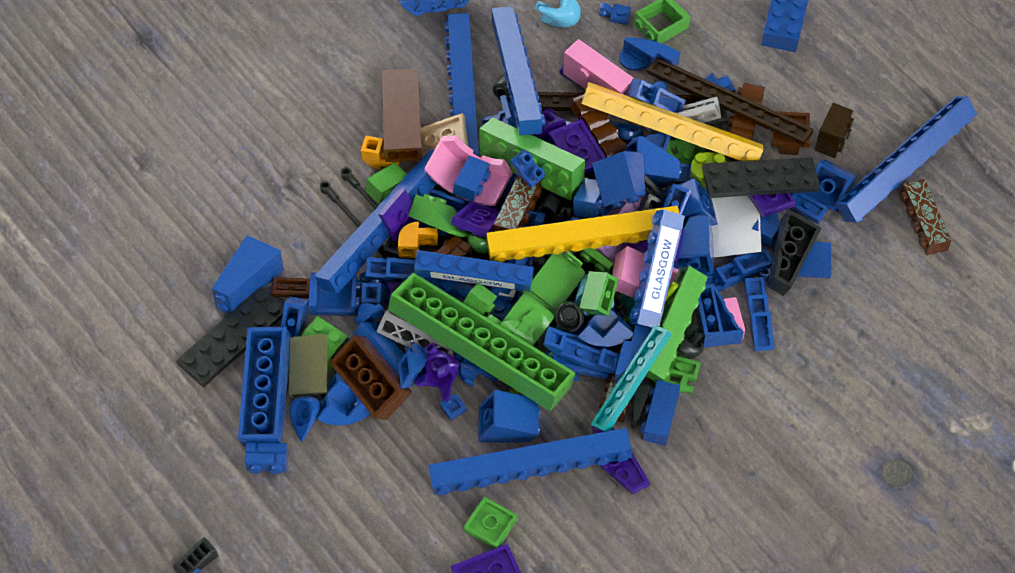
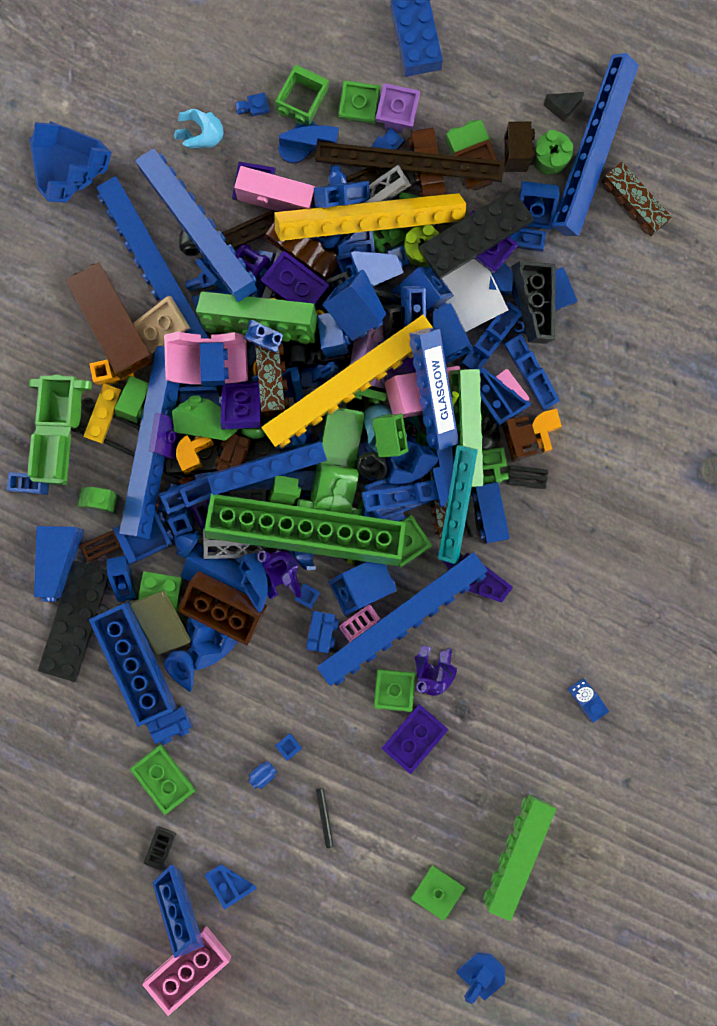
camera: 30 degrees left, 25 degrees up
(233, 503) = (162, 779): none -> bright green tile
(266, 219) = (38, 487): none -> blue slope
(312, 245) = (98, 499): none -> bright green slope
(315, 164) = (55, 415): none -> bright green piece
(326, 539) = (262, 775): none -> blue brick
(352, 184) = (102, 413): none -> yellow plate
(364, 526) = (288, 746): none -> blue plate
(449, 441) = (321, 632): none -> blue brick
(494, 443) = (371, 611): none -> bright pink slope
(527, 524) = (434, 679): none -> dark purple piece
(573, 405) = (414, 541): none -> bright green plate
(709, 45) = (359, 102): none -> bright green plate
(714, 397) = (524, 476): none -> pearl dark grey tile
(719, 358) = (519, 438): none -> reddish brown panel
(741, 61) = (397, 107): none -> medium lavender panel
(750, 360) = (544, 423): none -> light orange brick
(792, 104) = (466, 136): none -> bright green brick
(864, 149) = (561, 148): none -> bright green brick
(893, 117) = (563, 103): none -> pearl dark grey slope

